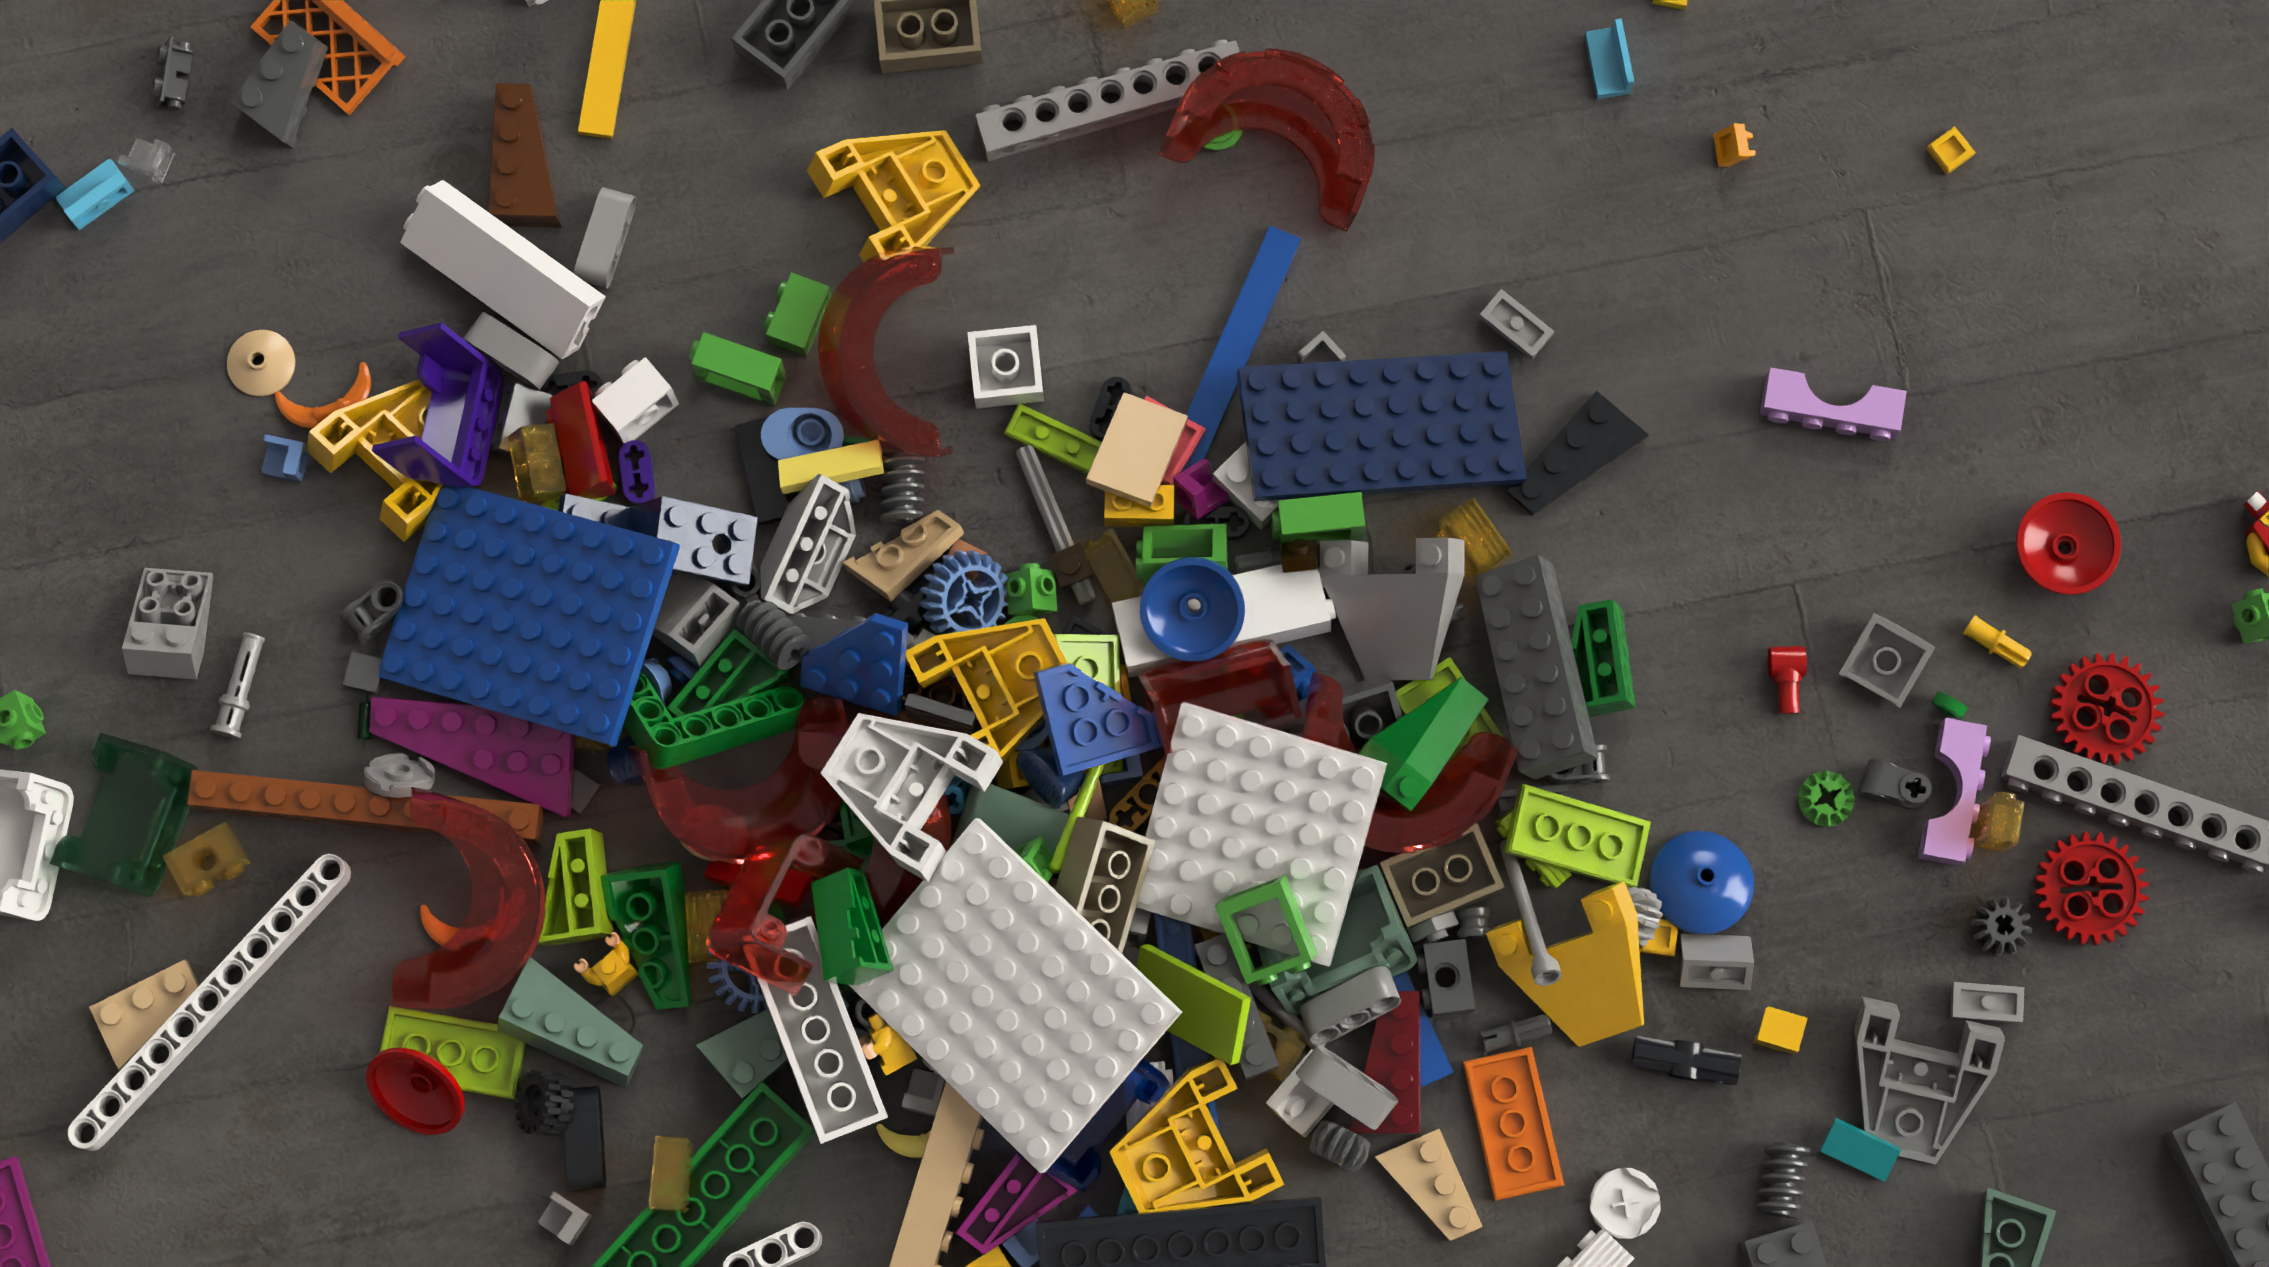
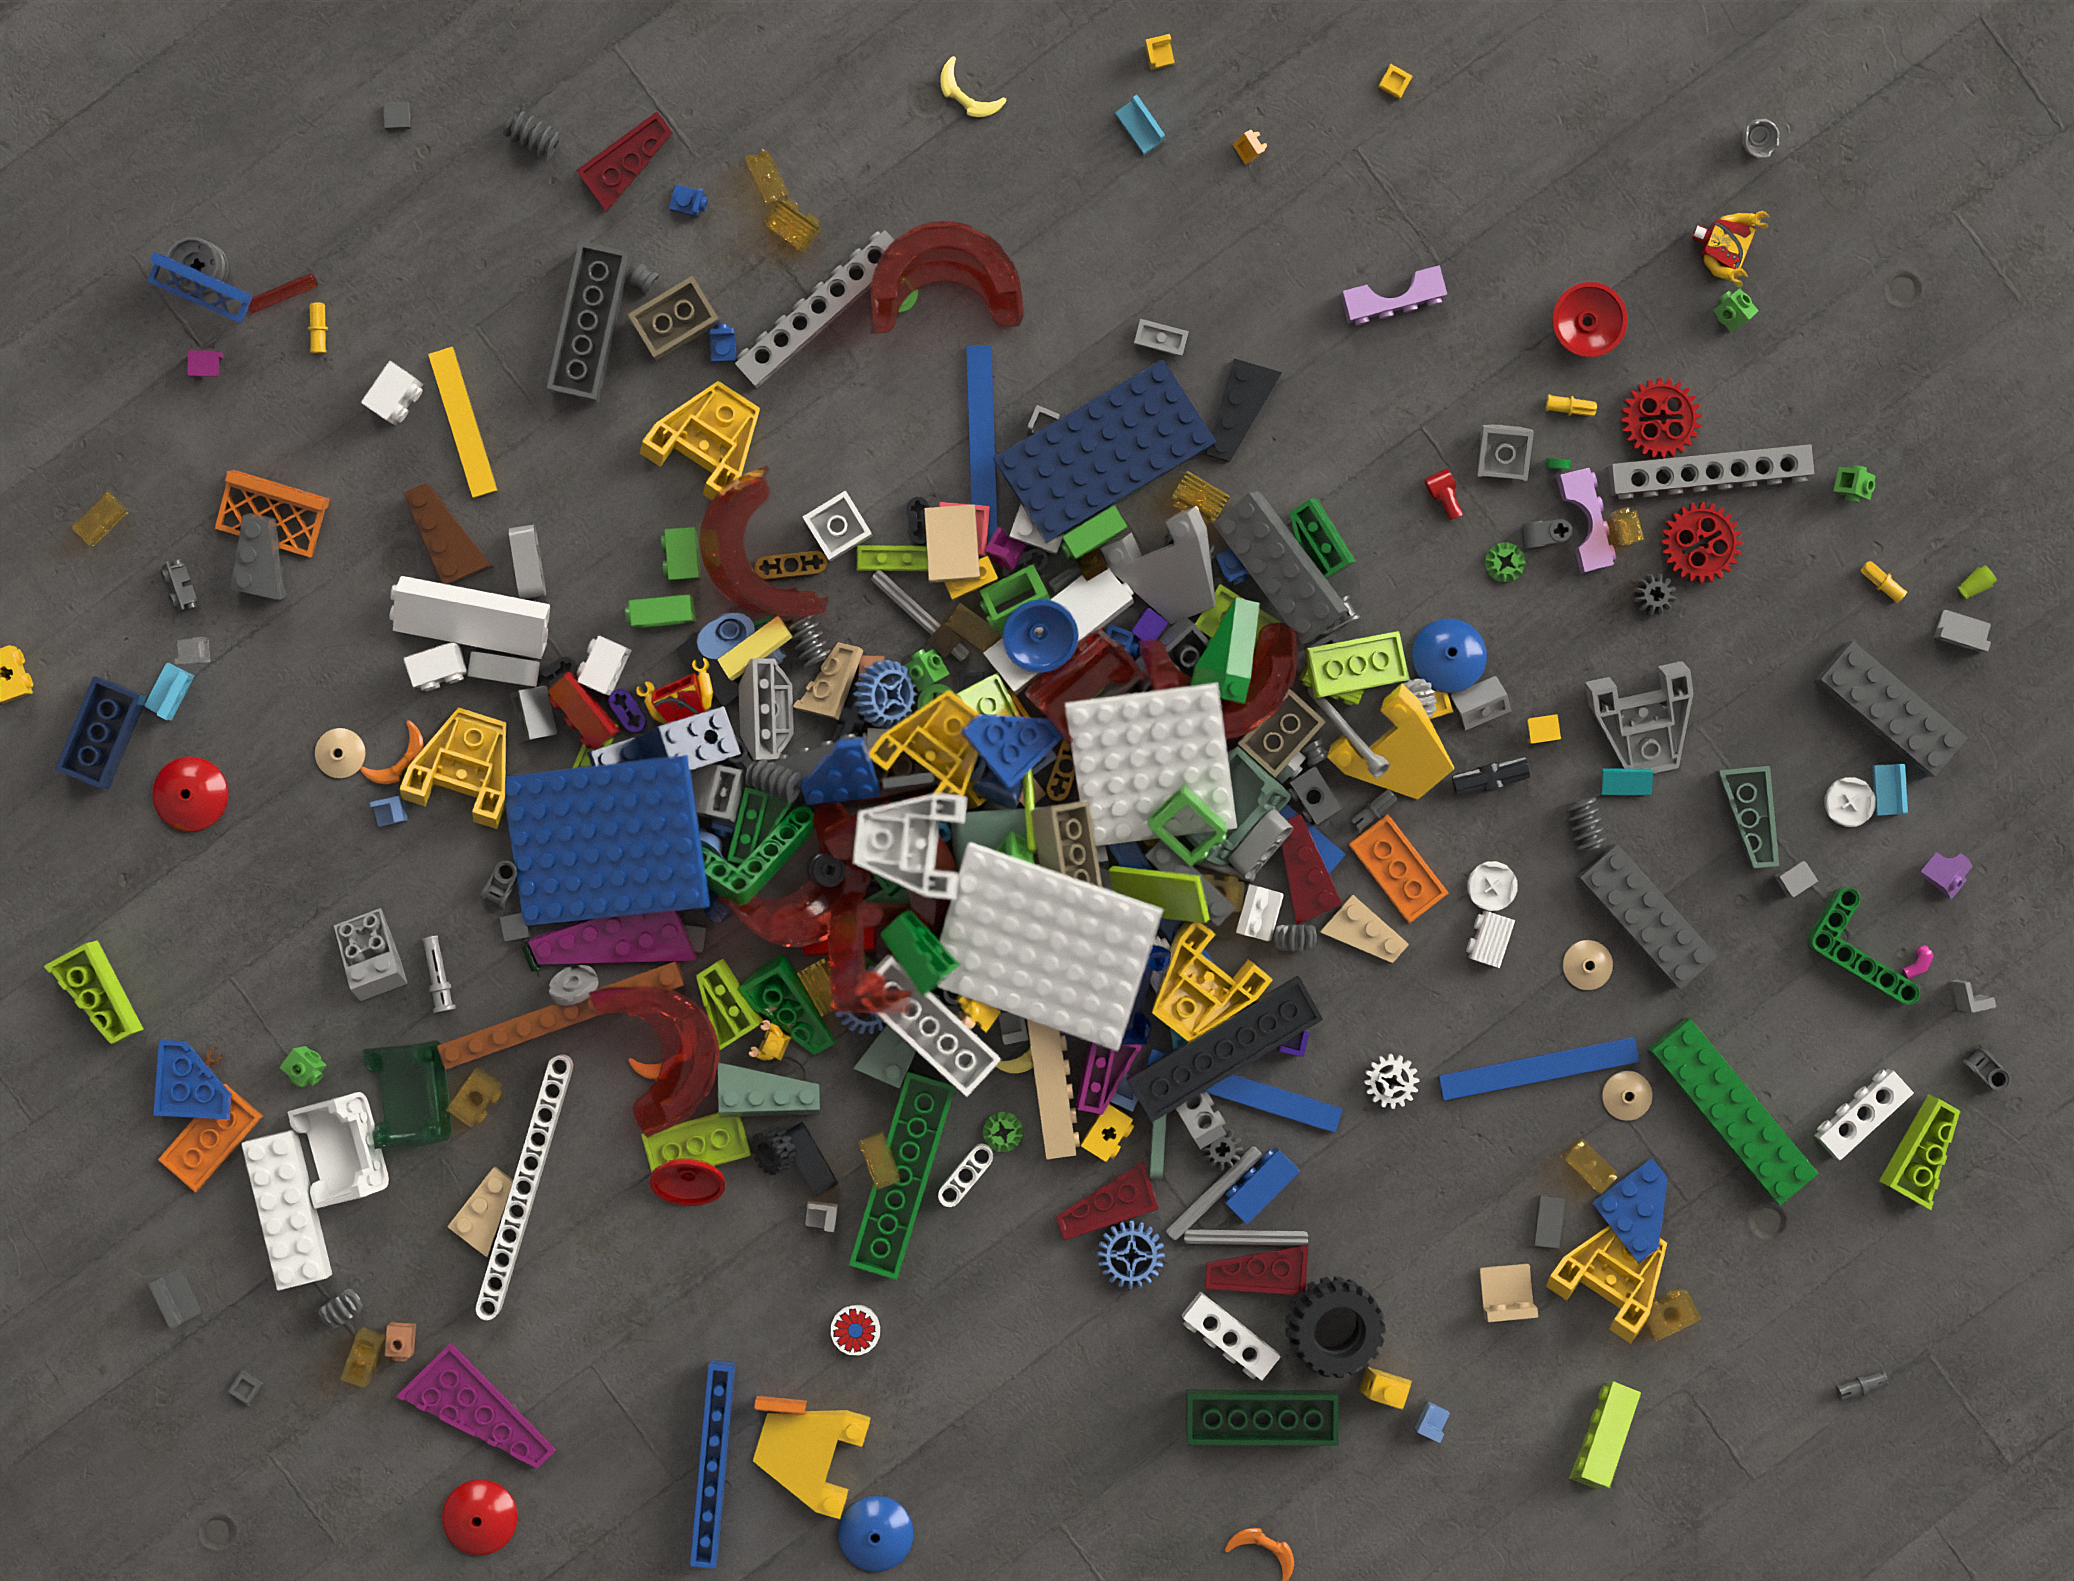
camera: 25 degrees left, 10 degrees up
(68, 343) = (207, 794): none -> red dish
(426, 302) = (436, 666): none -> white brick
(459, 414) = (491, 729): dark purple windscreen -> none
(536, 462) = (560, 737): clear yellow brick -> none
(711, 483) = (680, 698): none -> torso
(784, 778) = (825, 869): none -> black wheel
(856, 1236) = (992, 1126): none -> bright green gear
(952, 390) = (772, 561): none -> pearl gold beam
(972, 87) = (723, 343): none -> blue bracket
(1337, 664) = (1149, 625): none -> dark purple panel
(1346, 1087) = (1284, 899): light grey beam -> none
(1475, 644) = (1231, 567): none -> blue bracket
(1987, 1002) = (1666, 648): light grey plate -> none

